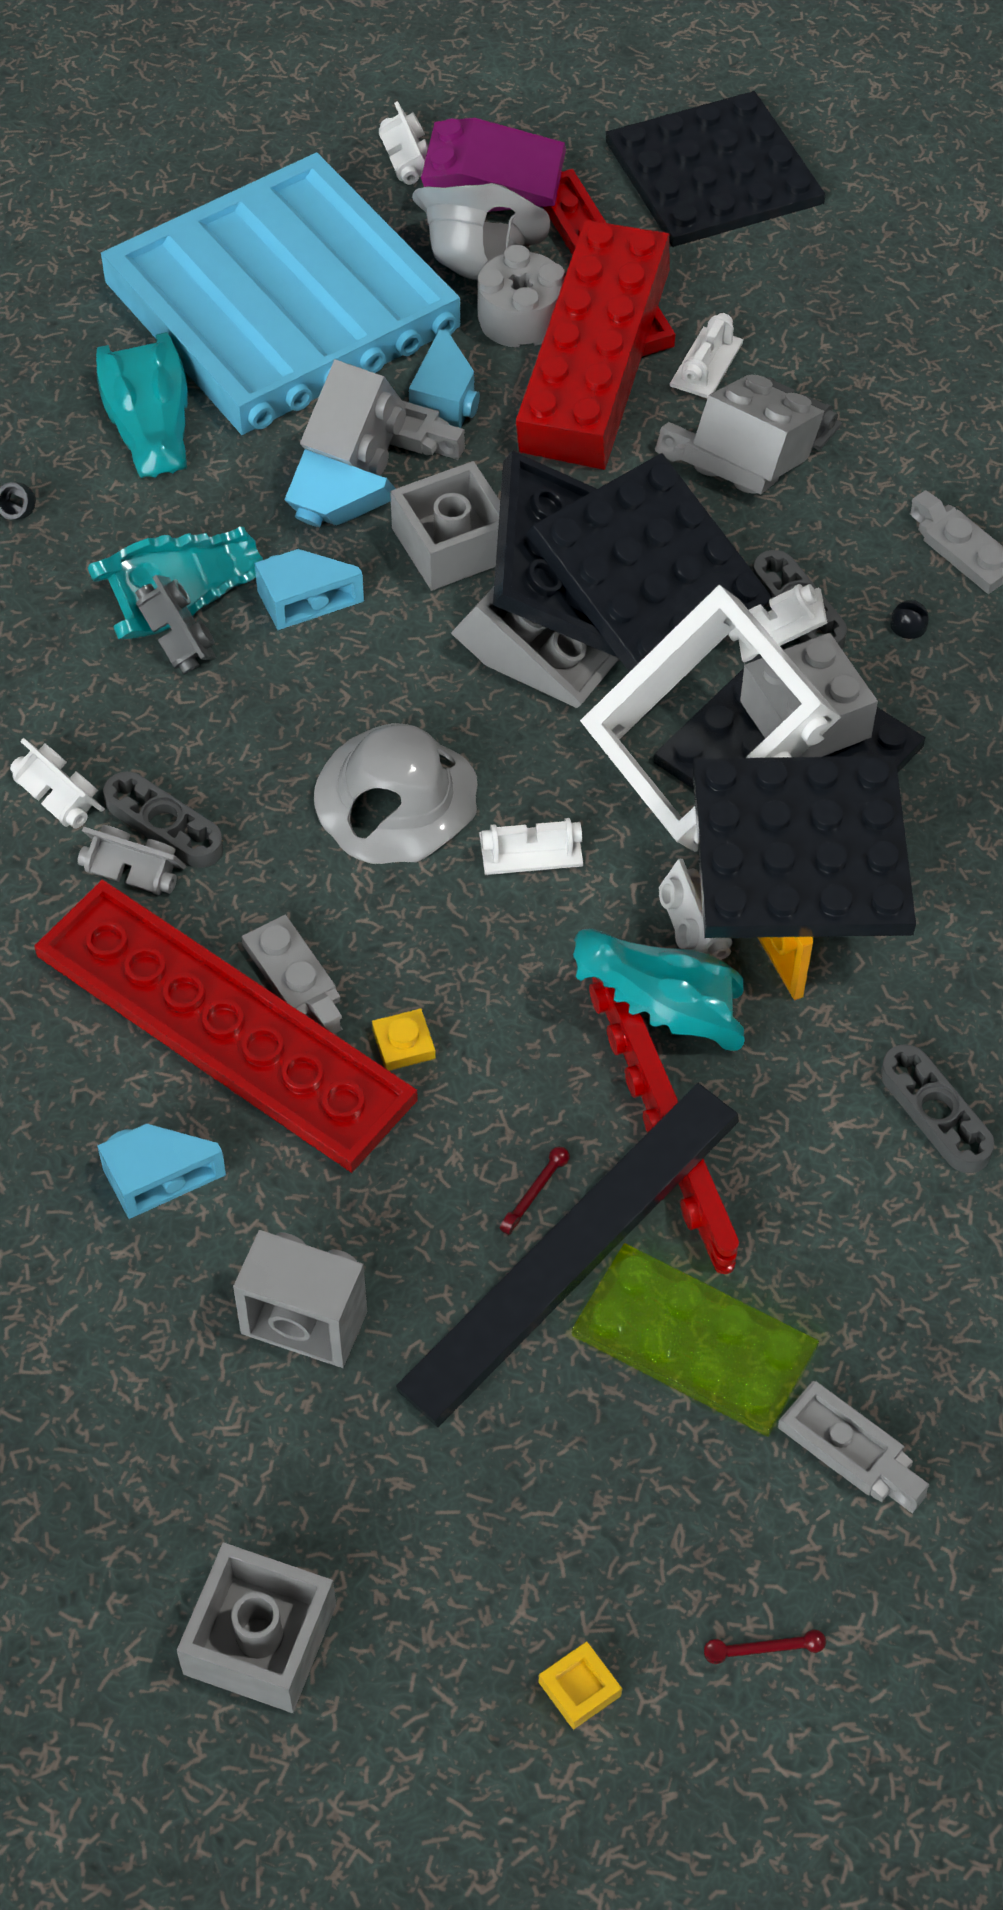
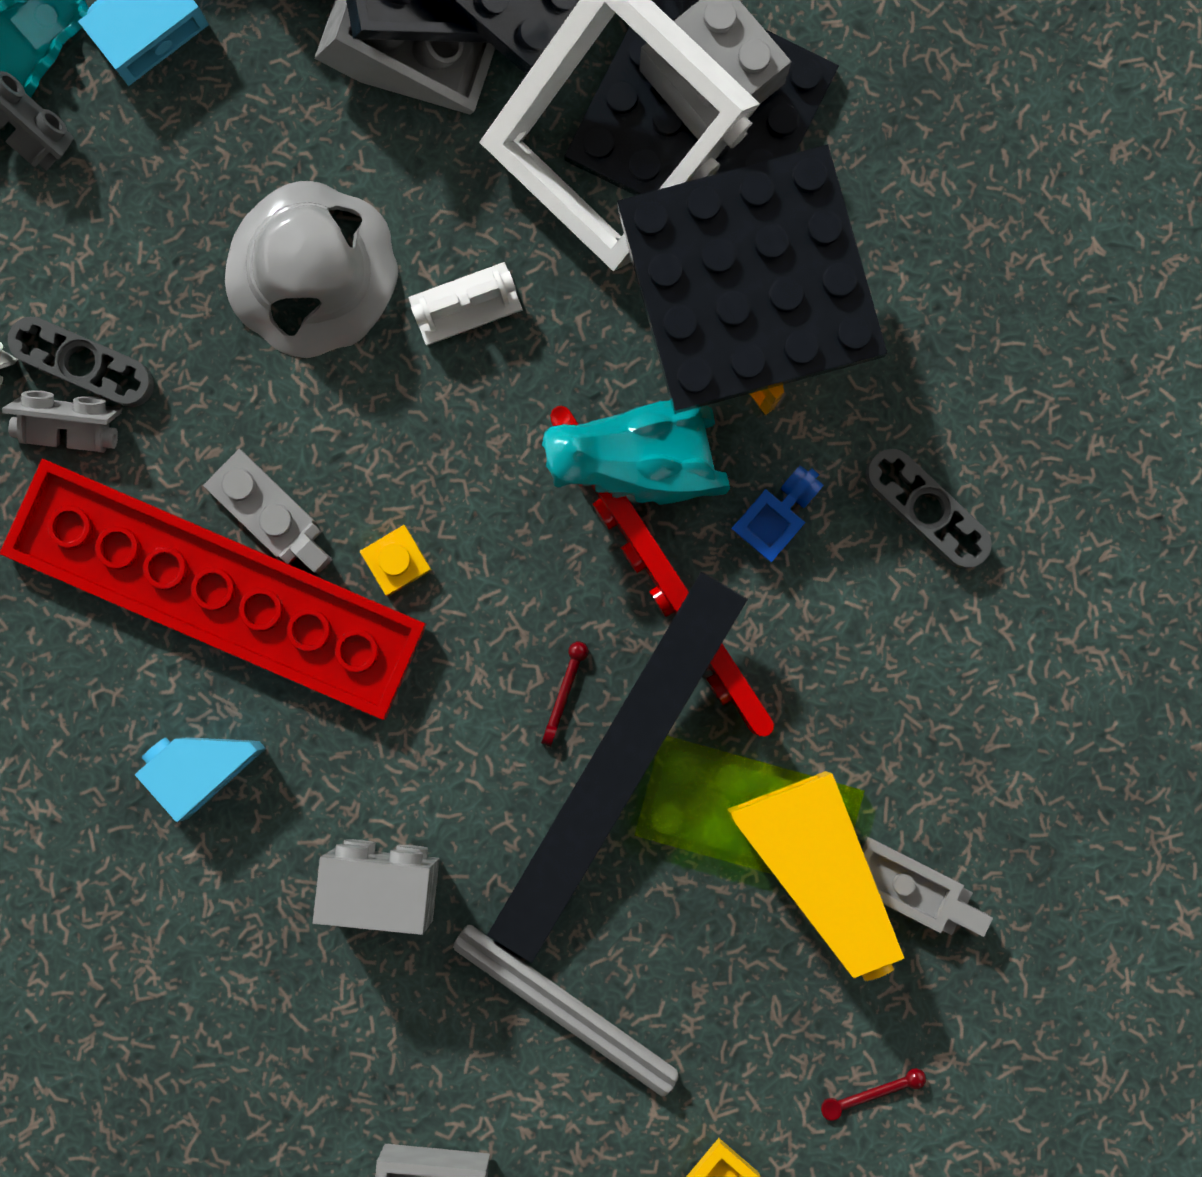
camera: 15 degrees left, 30 degrees up
(458, 1482) = (566, 1010): none -> light grey axle
(682, 898) = (631, 330): white hinge -> none
(756, 1379) = (819, 862): none -> yellow slope
(779, 1084) = (771, 523): none -> blue plate

